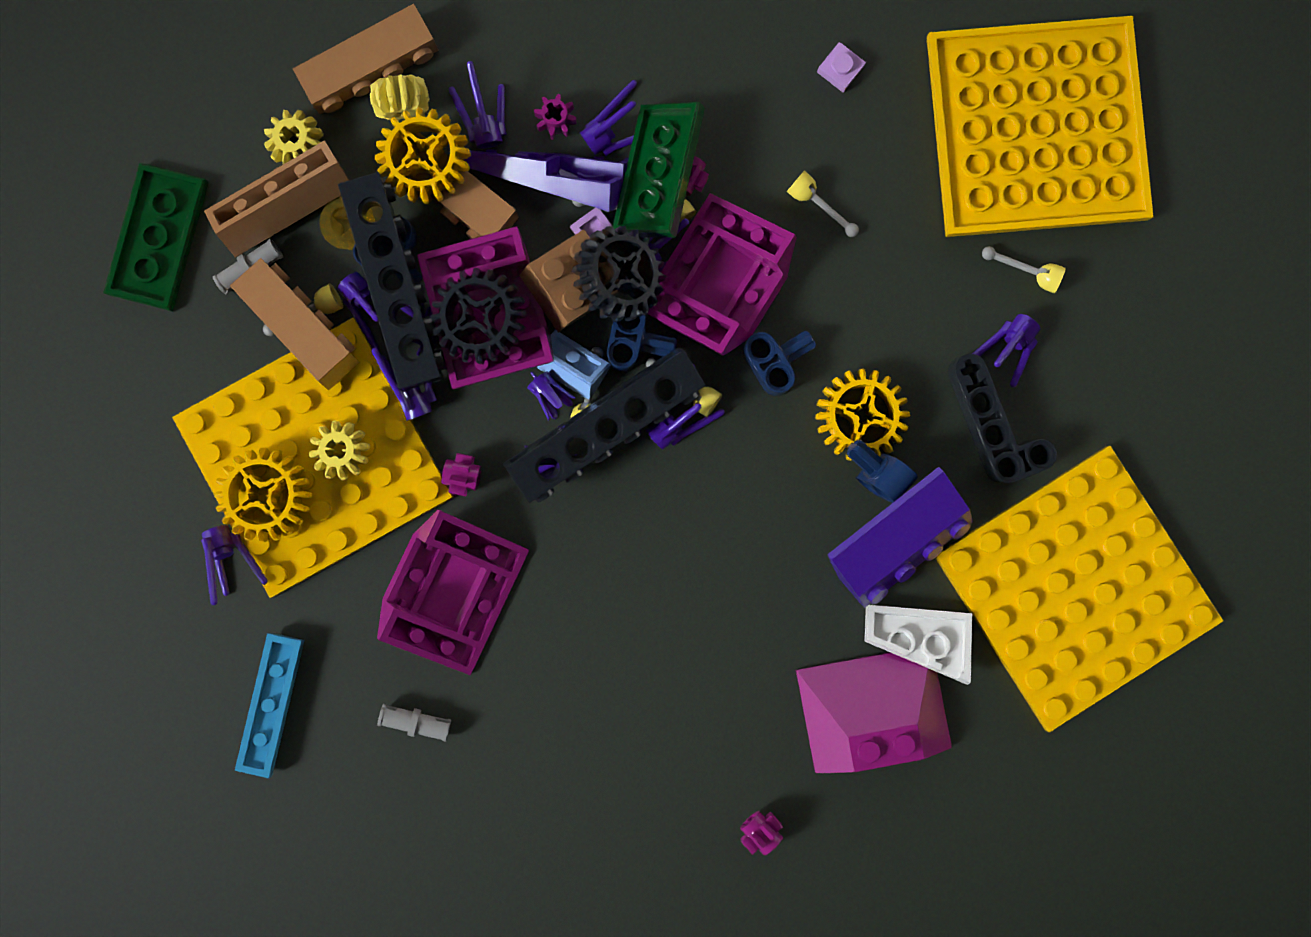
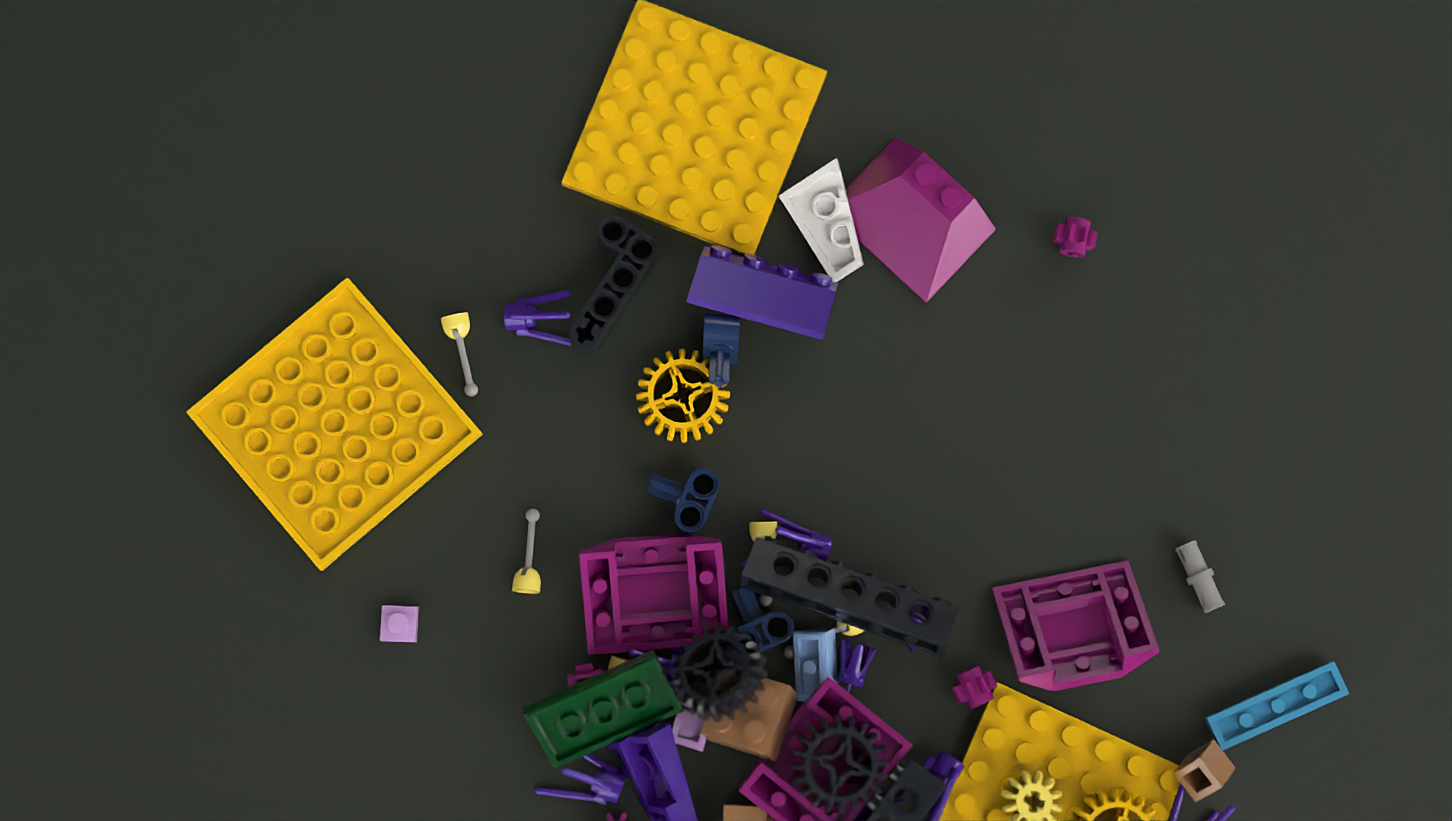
camera: 130 degrees left, 5 degrees down
(261, 606) = (1204, 770): none -> medium nougat brick

